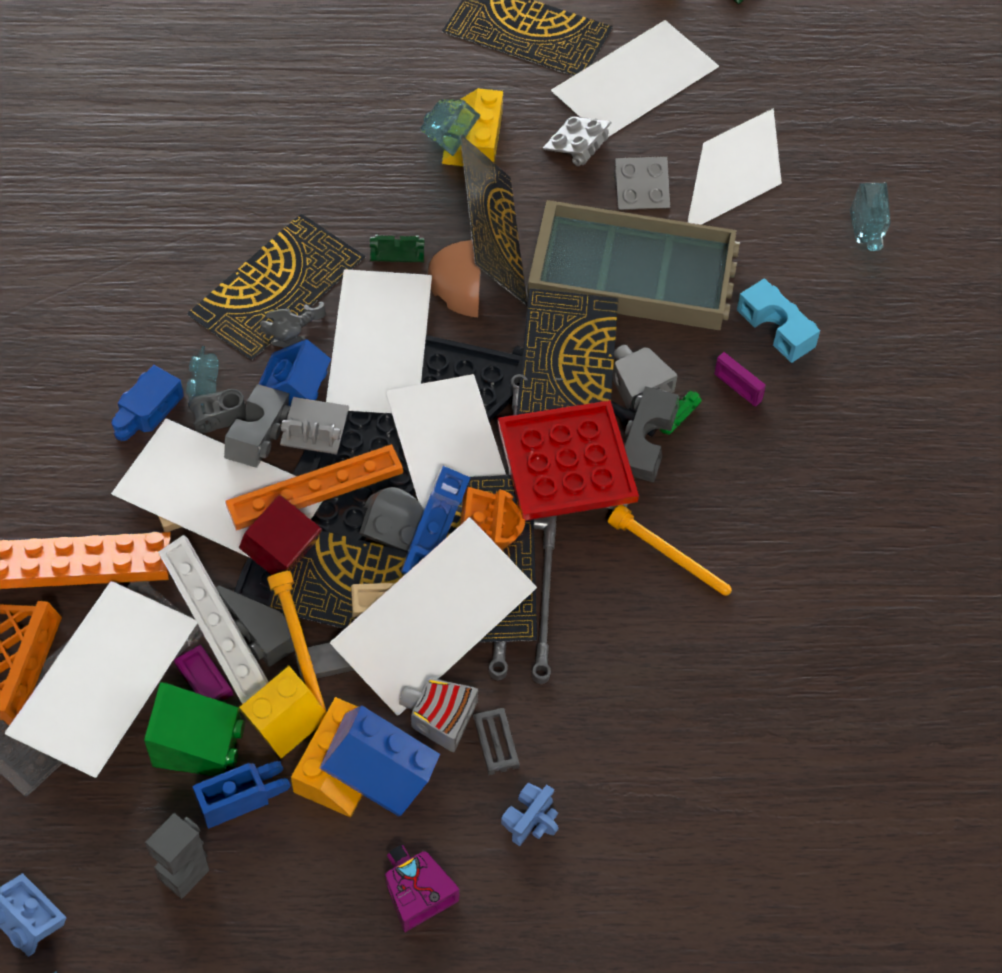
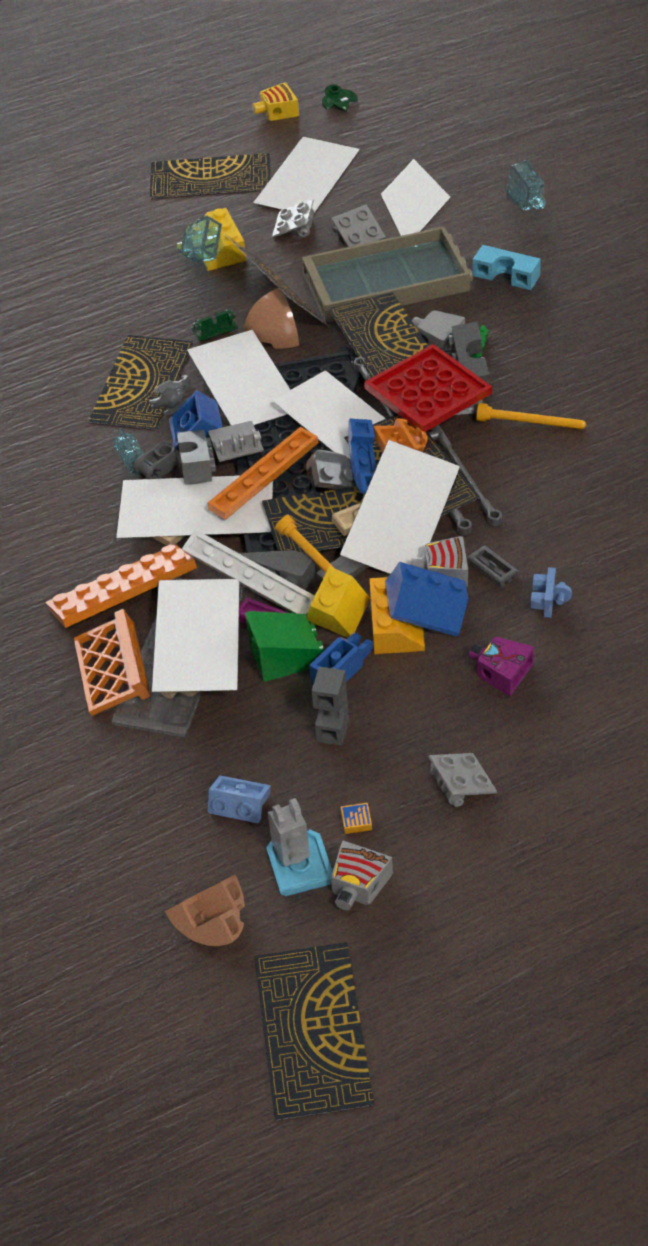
camera: 20 degrees left, 10 degrees down
(146, 403) = (101, 477): blue hinge -> none
(280, 537) = (265, 502): dark red piece -> none
(739, 379) = (505, 307): magenta tile -> none

